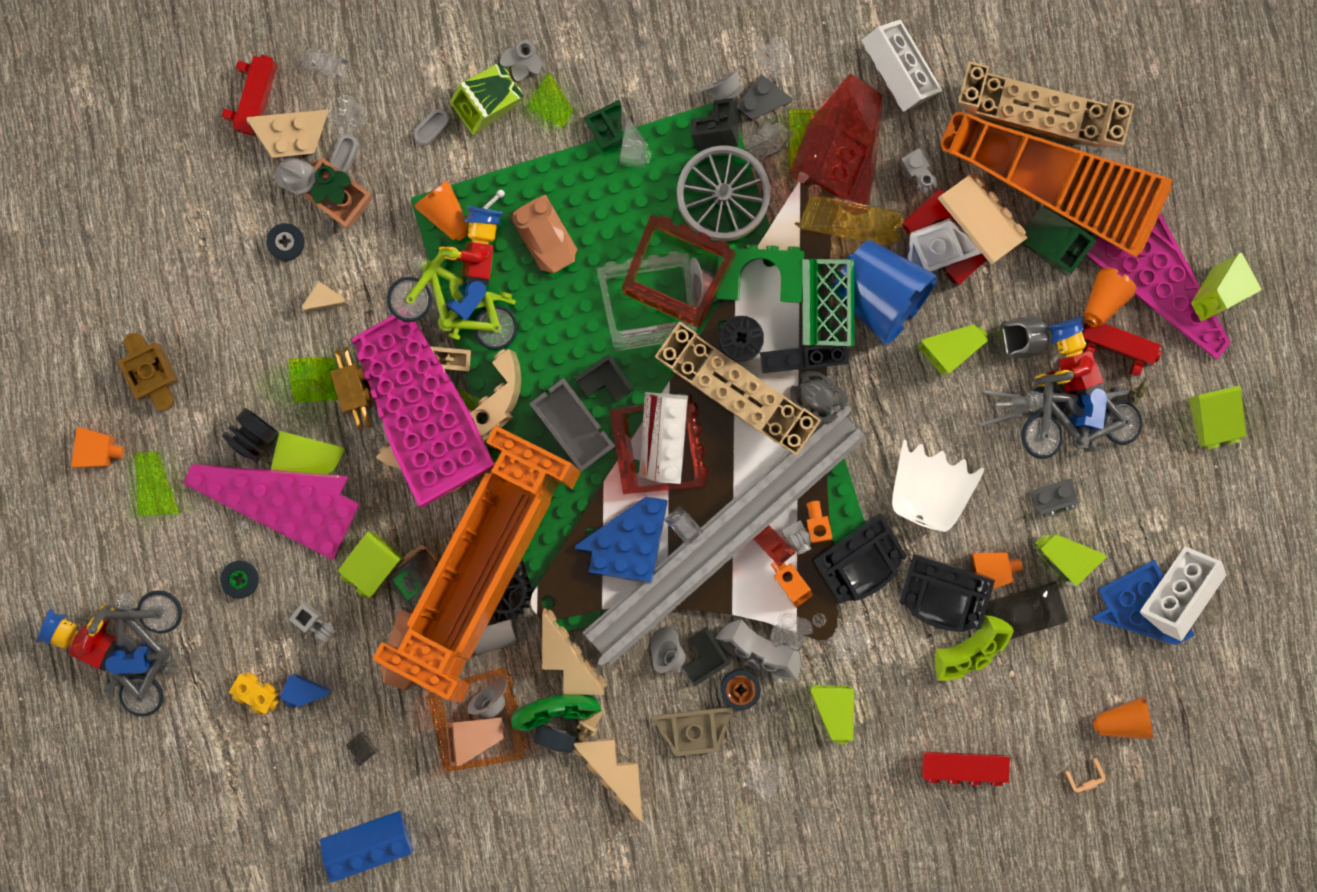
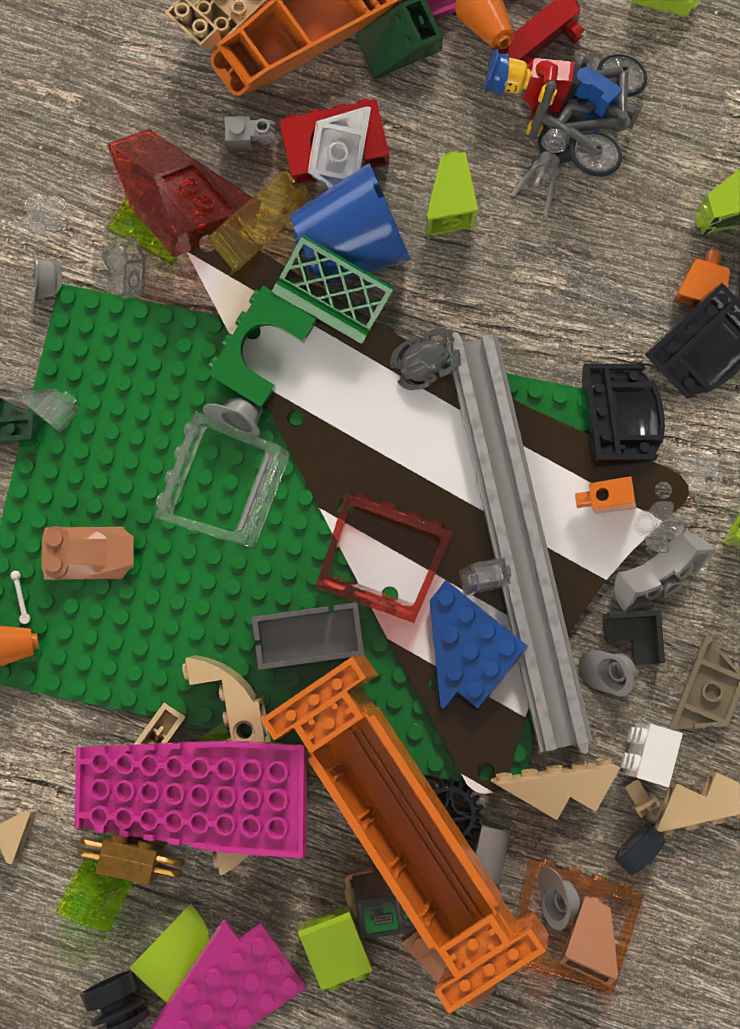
camera: 60 degrees left, 5 degrees down
(411, 298) = (69, 735): piece -> none
(566, 705) = (602, 847): green brick -> none
(605, 374) = (273, 569): pearl dark grey panel -> none
(624, 710) = (651, 753): none -> white brick
(663, 437) = (377, 545): white slope -> none
(665, 303) = (233, 463): clear red windscreen -> none
(718, 130) = (84, 310): pearl dark grey panel -> none
(723, 193) = (153, 339): light grey wheel -> none
(737, 350) = (332, 410): black wheel -> none
(737, 389) = (372, 437): tan slope -> none
(748, 697) = (678, 619): wheel -> none
(762, 99) = (81, 250): dark grey wing -> none
(774, 545) = (559, 492): clear red slope -> none
(797, 537) = (564, 463): light grey brick -> none
(803, 358) = (376, 352): black slope -> none
(817, 523) = (560, 433): orange bracket -> none
(901, 65) = (129, 93): white slope -> none
(932, 477) = (575, 293): white piece -> none
(983, 217) = (335, 90): tan slope -> none
(1020, 337) = (480, 123): dark grey piece -> none
(1054, 497) = (662, 183): dark grey bracket -> none
(1139, 392) = (601, 41): olive plant -> none

